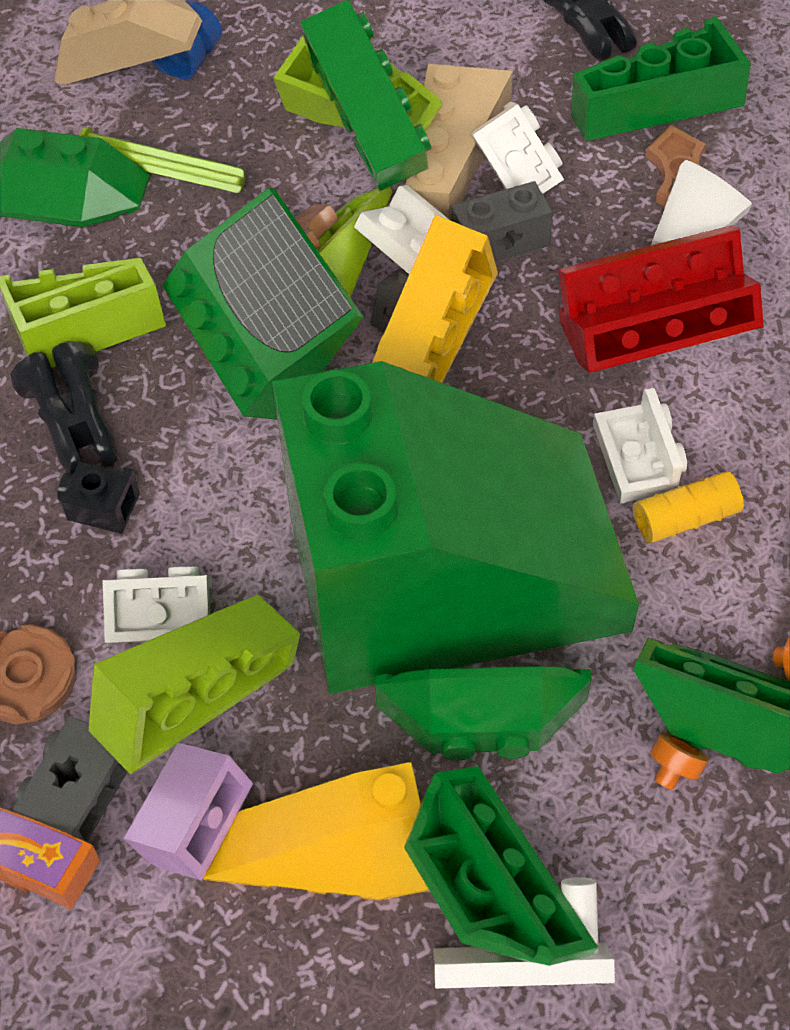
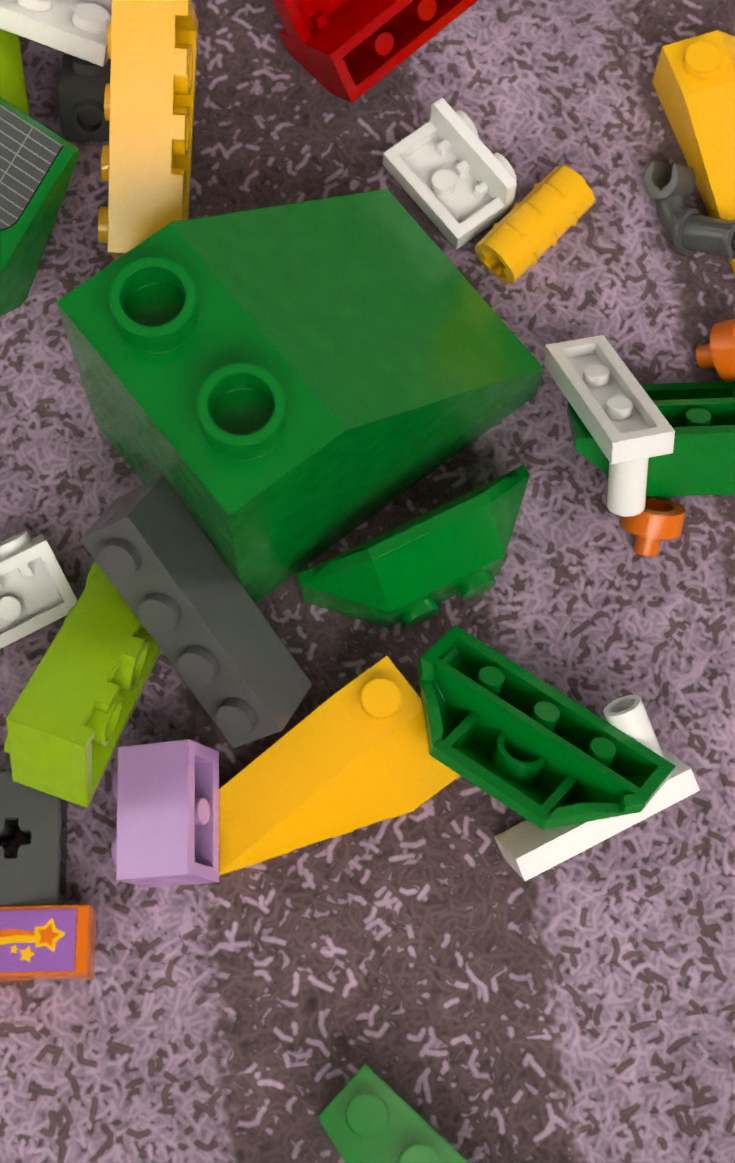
camera: 30 degrees left, 15 degrees up
(282, 667) = (197, 612): none -> dark grey brick
(676, 662) = (615, 414): none -> white piece

